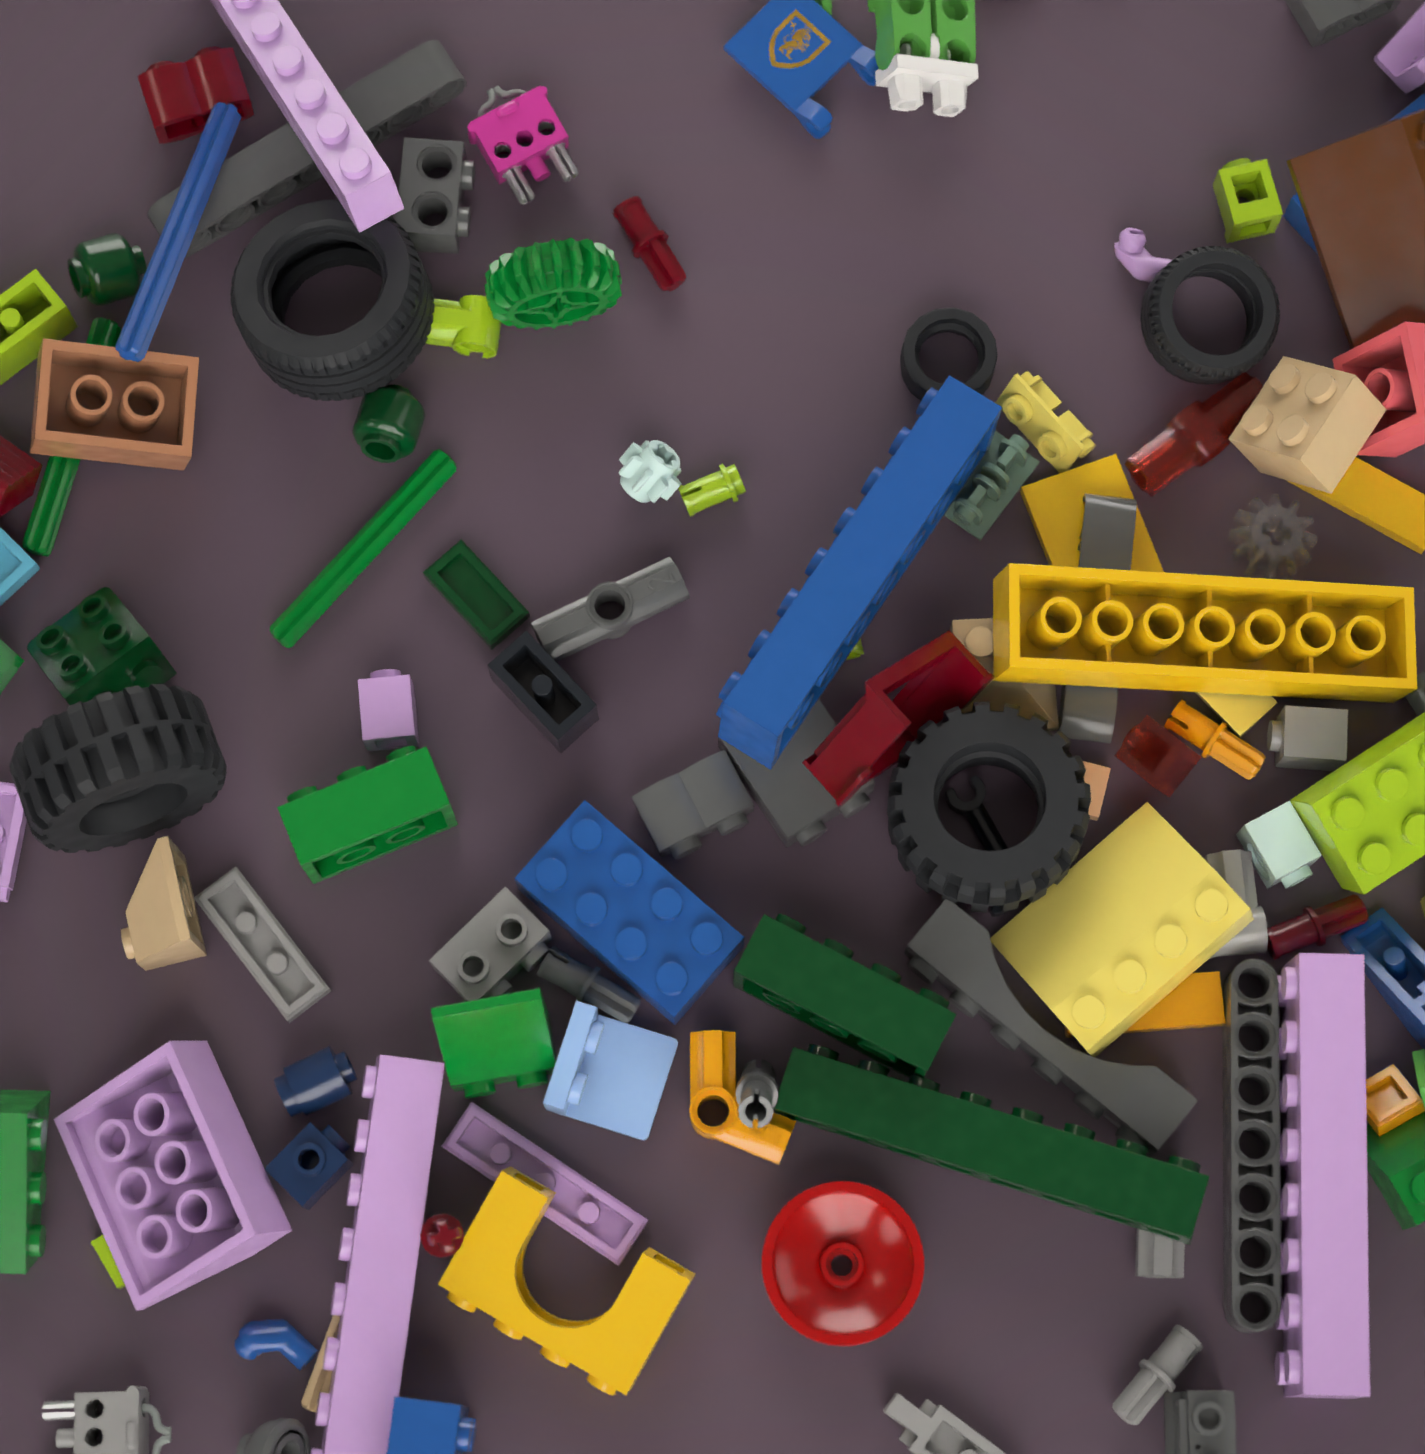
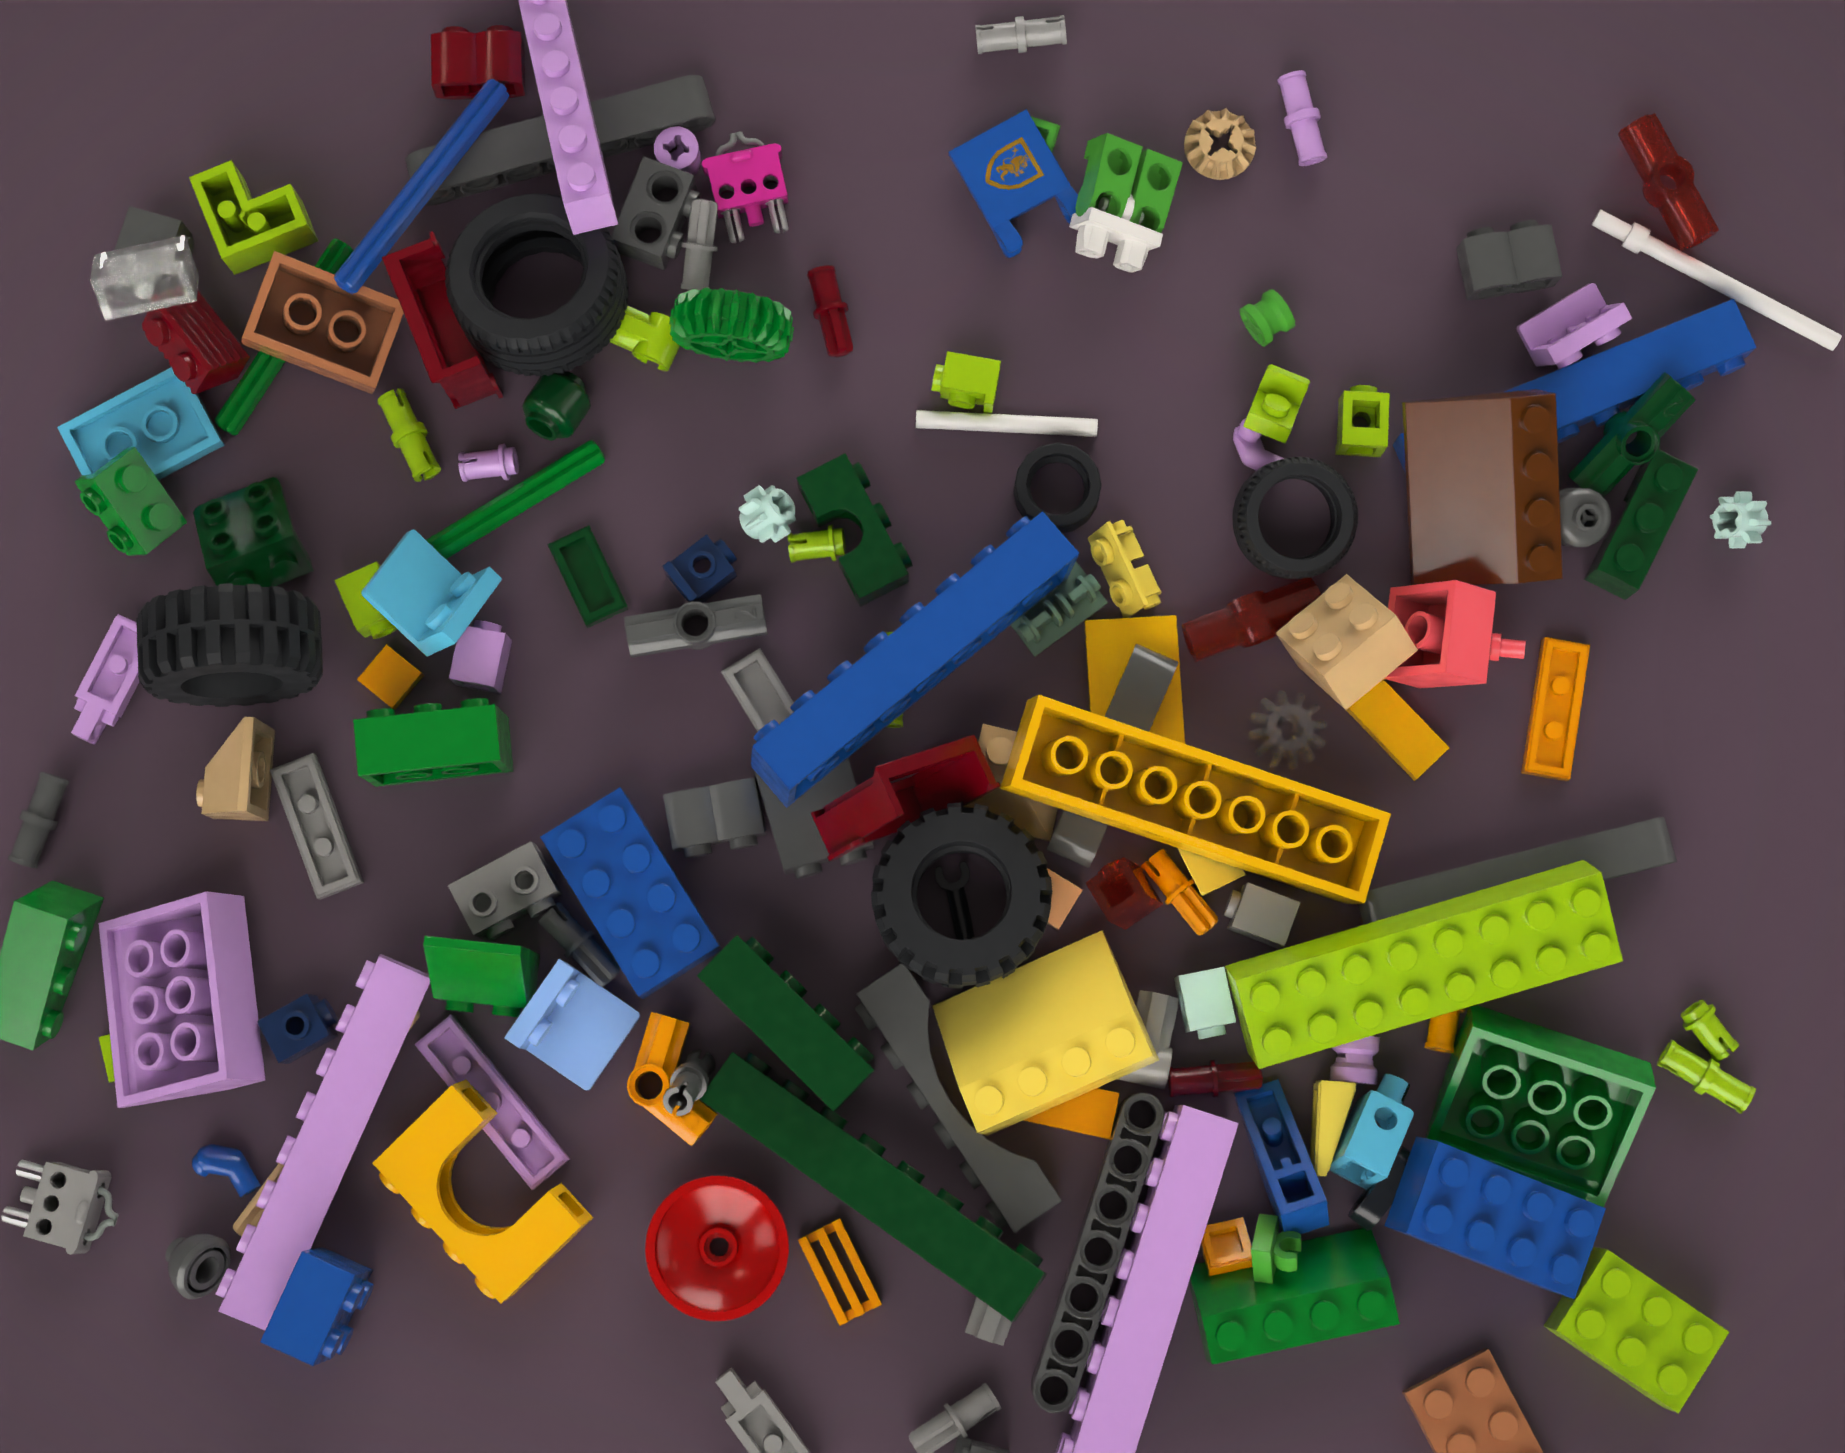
camera: 15 degrees right, 5 degrees up
(106, 269) = (355, 198): dark green head -> none
(238, 500) = (409, 435): none -> lime pin
(251, 685) = (364, 616): none -> lime brick
(275, 415) = (443, 346): none -> dark red piece
(294, 760) = (390, 677): none -> light orange tile
(313, 660) = (427, 594): none -> medium azure bracket
(315, 1082) = (324, 958): dark blue brick -> none
(333, 505) = (489, 463): none -> lavender pin
(438, 111) = (685, 140): none -> lavender wheel
(442, 1235) = (386, 1124): dark red axle -> none
(490, 211) = (699, 244): none -> light grey axle
(543, 691) = (615, 681): black brick -> none
(592, 566) = (702, 586): none -> dark blue brick
(697, 661) = (758, 689): none -> light grey tile
(720, 428) = (839, 492): none -> dark green arch
(819, 274) = (967, 381): none -> lime brick
(872, 308) = (1006, 423): none -> white bar
(1012, 1286) = (822, 1235): none -> light orange tile
(1112, 121) = (1267, 317): none -> bright green wheel
(1151, 204) = (1276, 403): none -> lime bracket

